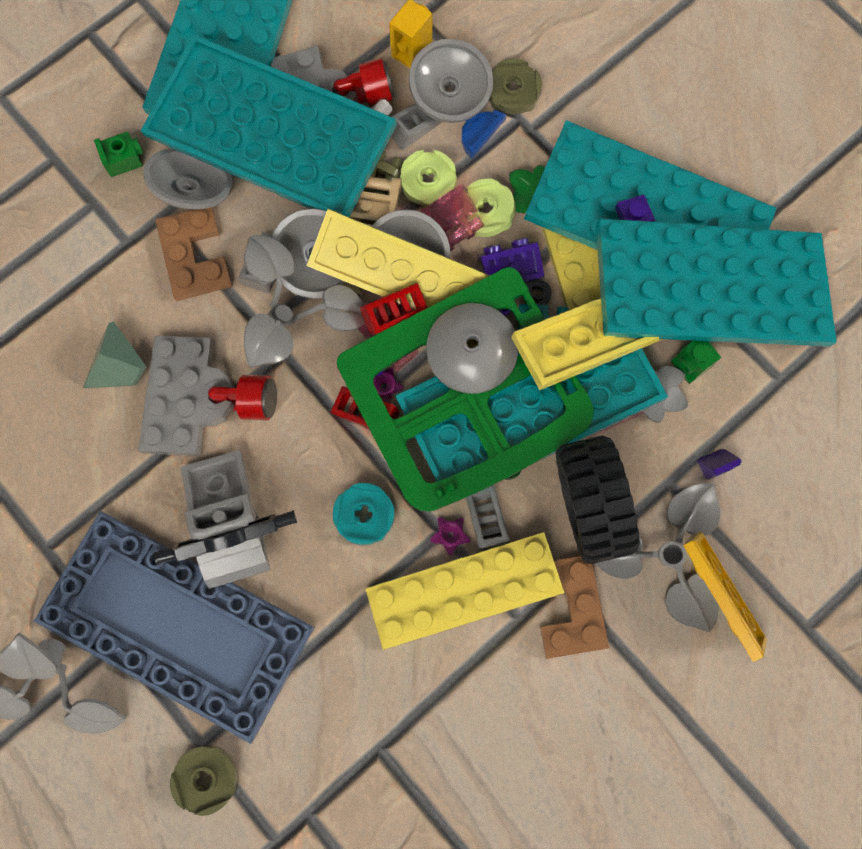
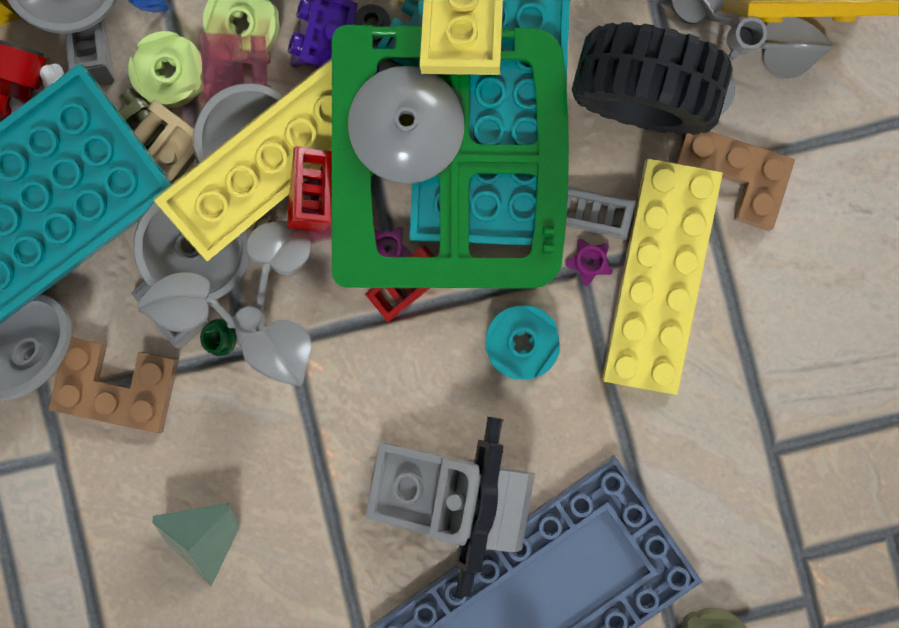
camera: 65 degrees left, 10 degrees up
(191, 395) = (287, 468): light grey plate -> none
(259, 302) = (218, 338): none -> dark green plate

